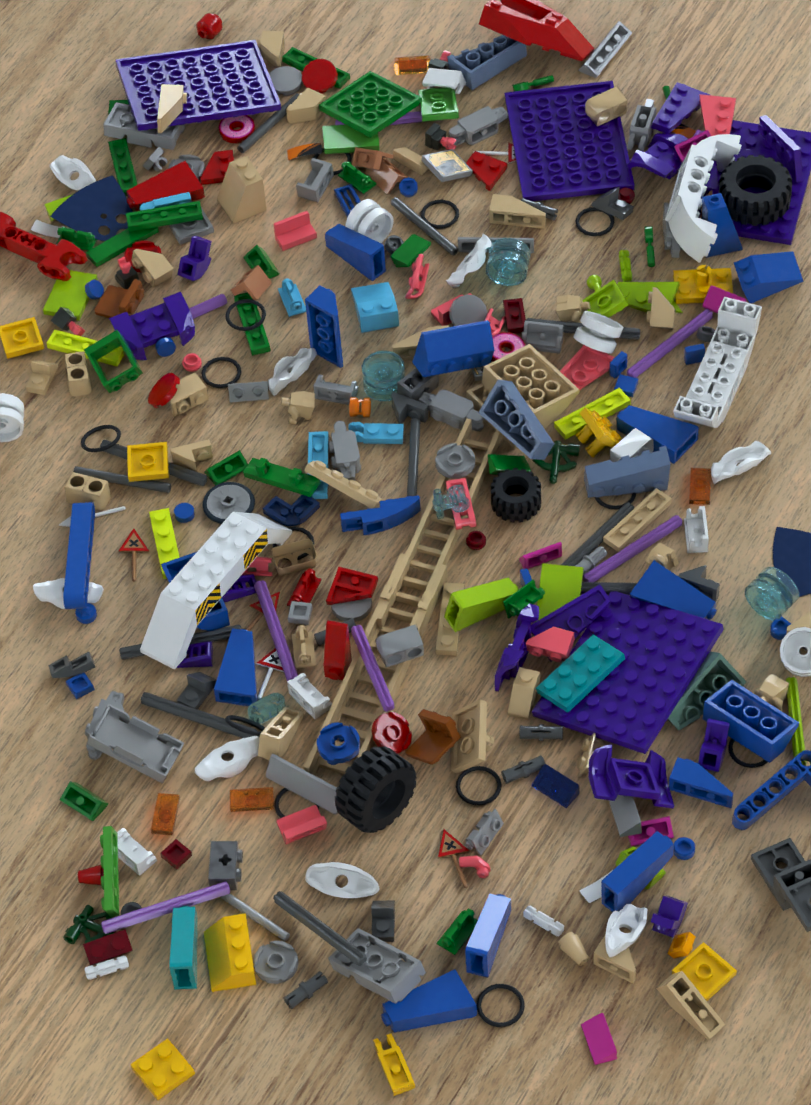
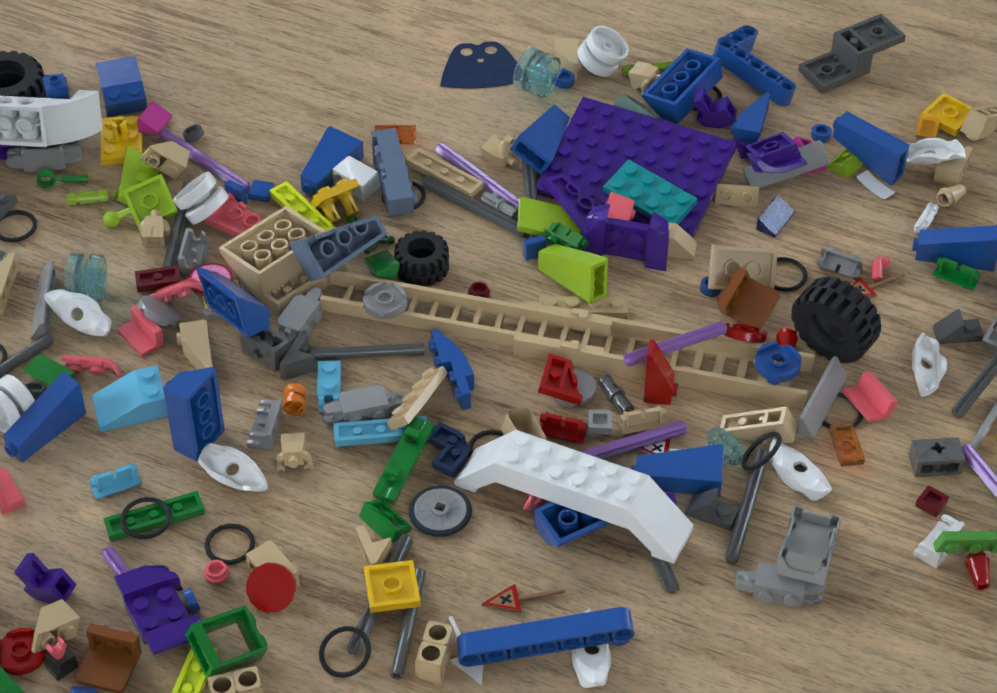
camera: 100 degrees left, 5 degrees down
(67, 668) = (702, 631): dark grey slope -> none
(80, 685) = (723, 625): blue tile -> none
(83, 800) = (881, 598): green slope -> none
(164, 536) = (503, 566): neon yellow plate -> none
(165, 814) = (883, 517): clear orange plate -> none
(184, 512) = (456, 553): blue tile -> none
(248, 391) = (264, 500): light grey hinge -> none
(254, 282) = (89, 521): nougat panel -> none
(258, 256) = (49, 521): green slope -> none
(308, 696) = (706, 409): white hinge -> none
(381, 374) = (251, 376): clear light blue wheel -> none
(400, 645) = (649, 317): light grey piece -> none
(450, 500) = (456, 282): clear light blue piece -> none
(470, 521) = (449, 287): coral plate -> none
(523, 769) = (761, 238): dark grey pin -> none
(541, 556) = (493, 240): dark pink slope -> none
(545, 732) = (715, 227): dark grey pin -> none
(669, 916) = (907, 132): dark purple brick -> none
(694, 354) = (222, 139): blue tile -> none
(696, 531) = (455, 130): white hinge -> none
(696, 578) = (516, 126): dark grey slope -> none
(721, 365) = (254, 117): white slope -> none
(746, 456) = (357, 96): white piece -> none

